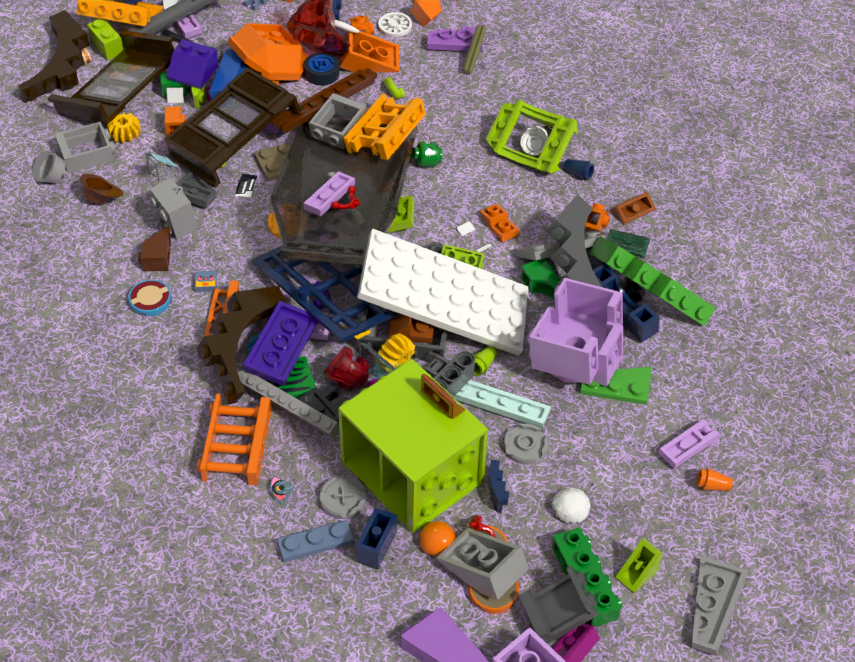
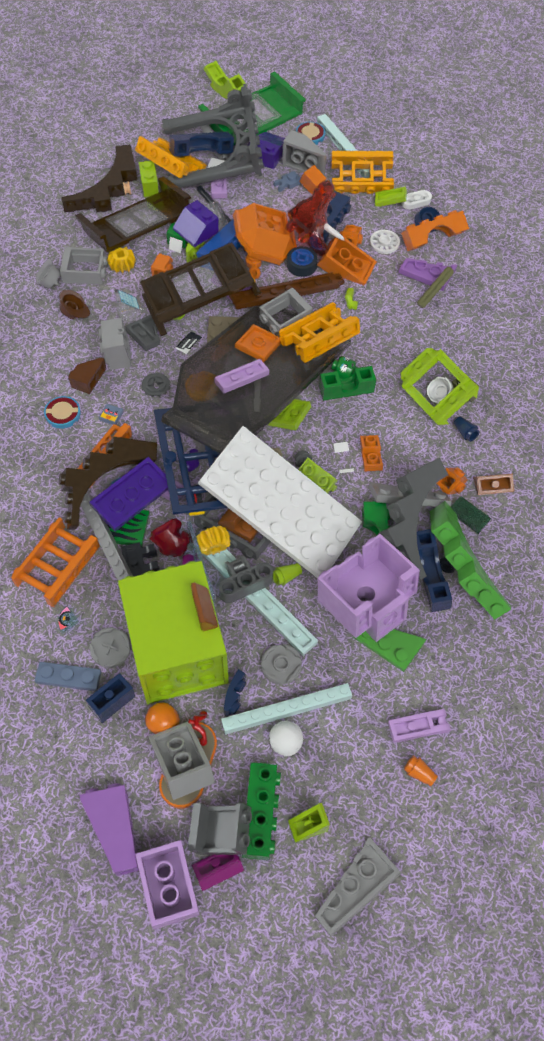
camera: 25 degrees right, 10 degrees up
(238, 230) = (162, 382): none -> dark grey gear
(324, 159) = (258, 343): none -> orange tile
(353, 203) = (258, 391): red piece -> none
(426, 173) = (360, 383): none -> green arch
(554, 480) = (286, 708): none -> light aqua piece

